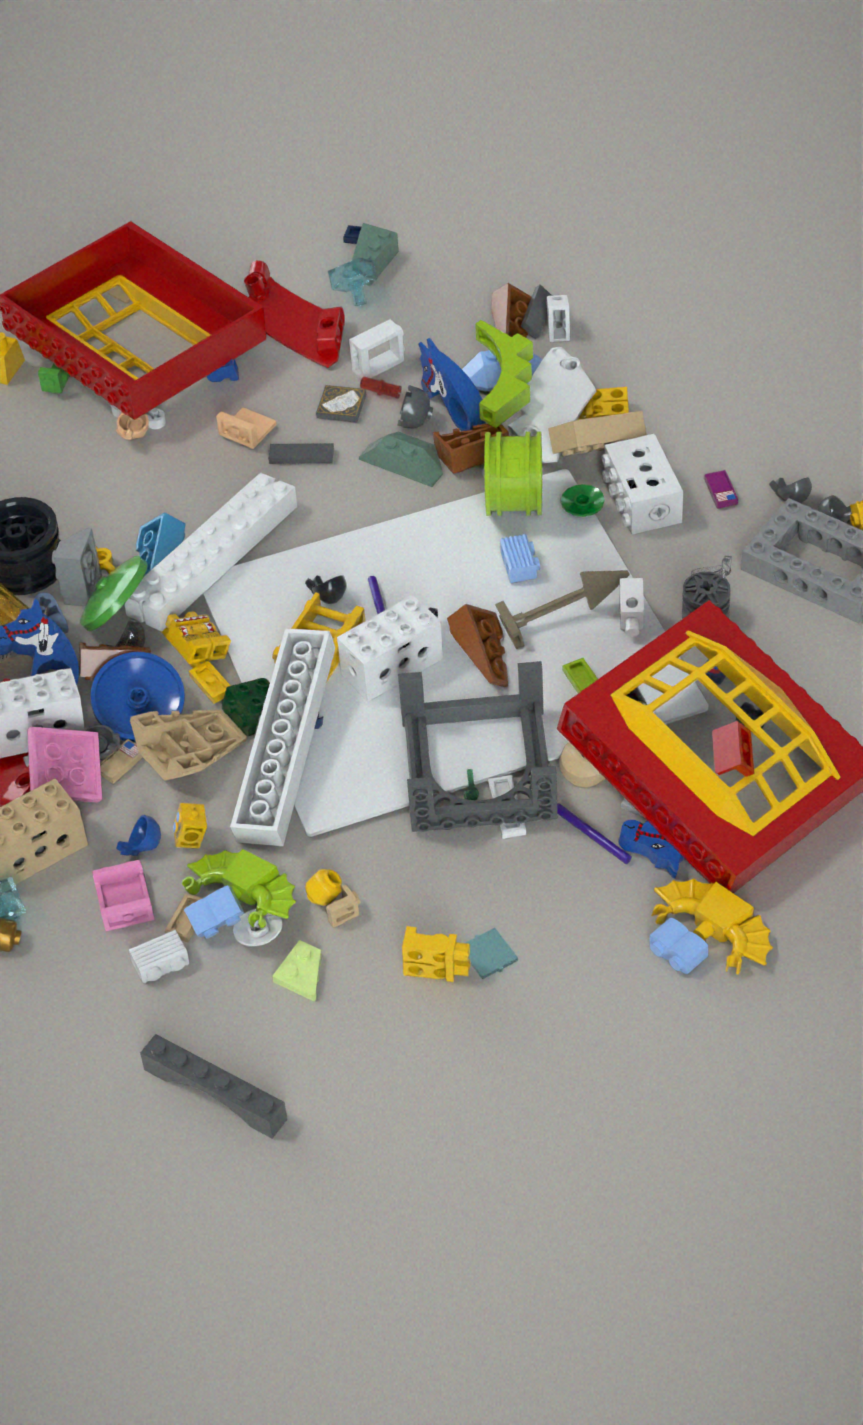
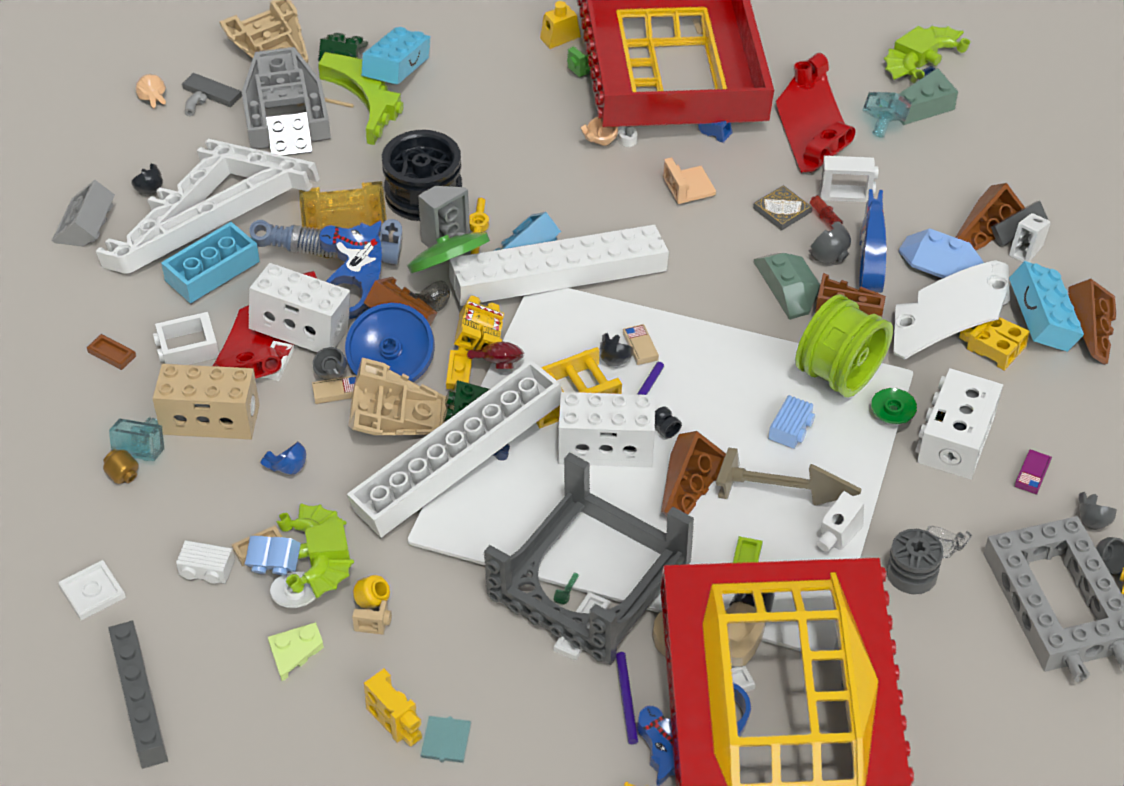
camera: 35 degrees right, 0 degrees up
(69, 758) = (284, 363): bright pink plate -> none
(81, 1042) = (91, 590): none -> white tile
(123, 895) = (231, 496): bright pink panel -> none
(189, 825) = (325, 473): yellow head -> none
(239, 645) = (500, 353): none -> dark red animal
(301, 453) = (711, 229): dark grey tile -> none
(326, 216) = (921, 47): none -> lime torso
(333, 567) = (639, 339): none -> tan tile
(511, 390) = (934, 261): lime arch -> none
(594, 433) = (951, 352): tan brick -> none
(621, 360) = (1046, 306): none -> medium azure brick
(655, 346) = (1095, 311): none -> dark orange wedge
(733, 749) = (768, 705): panel -> none

